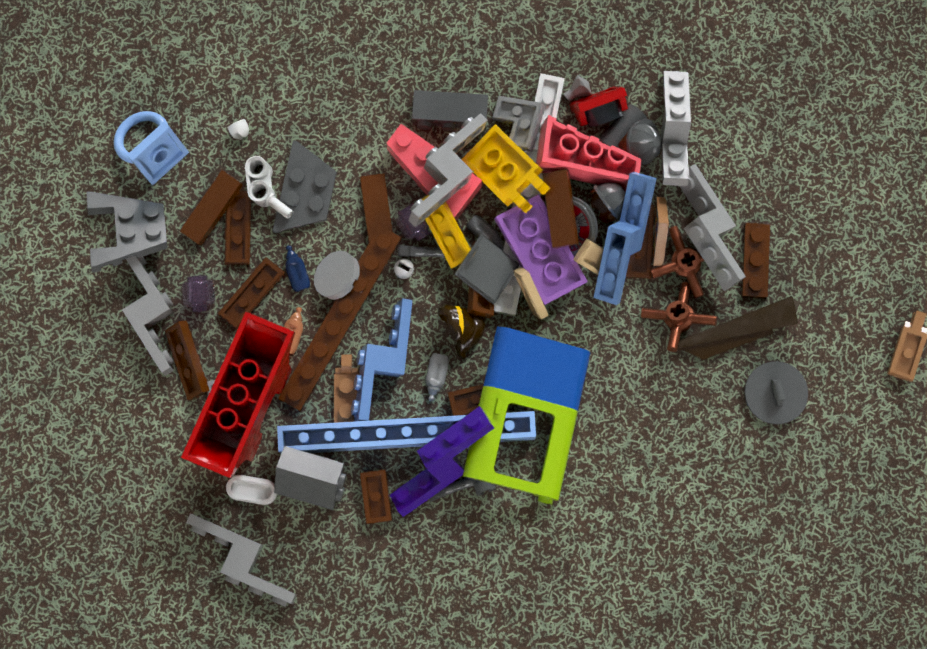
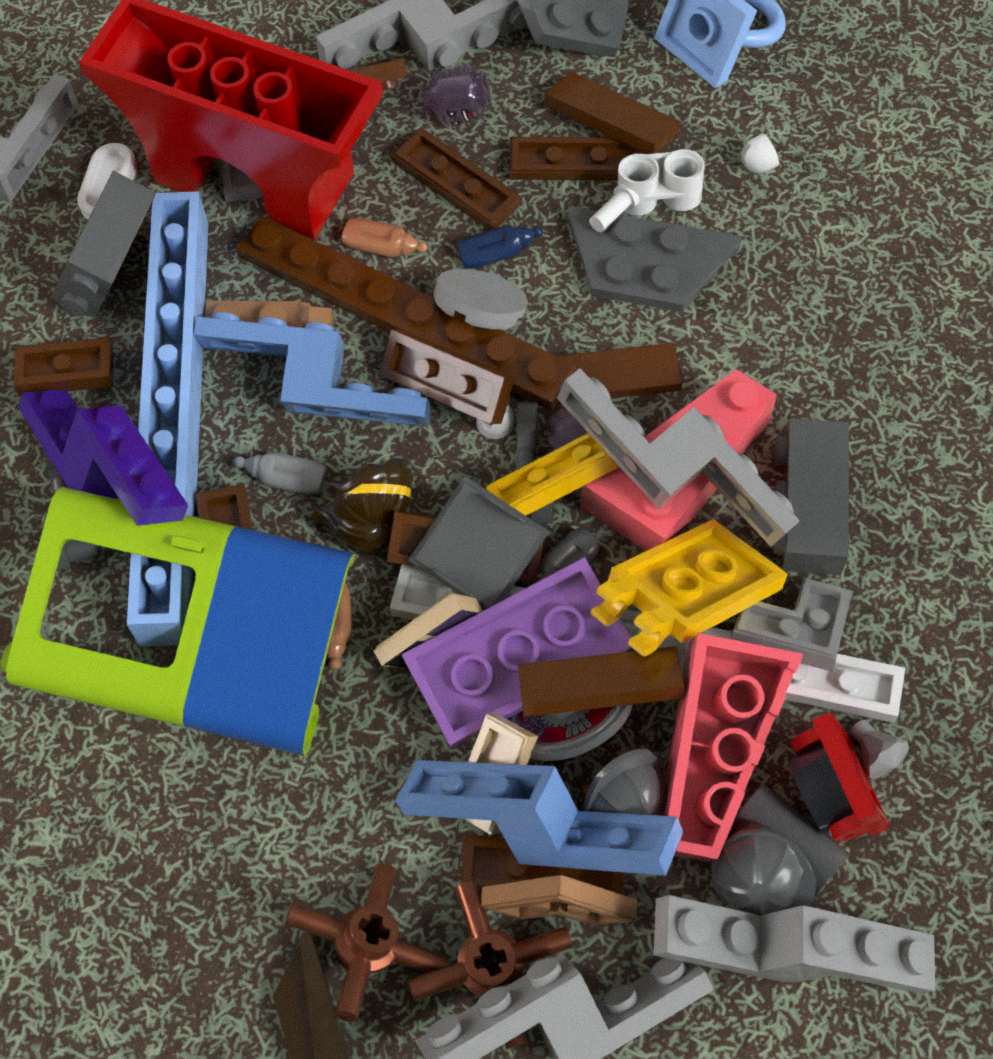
camera: 95 degrees right, 15 degrees down
(386, 290) = (447, 376): none -> plate

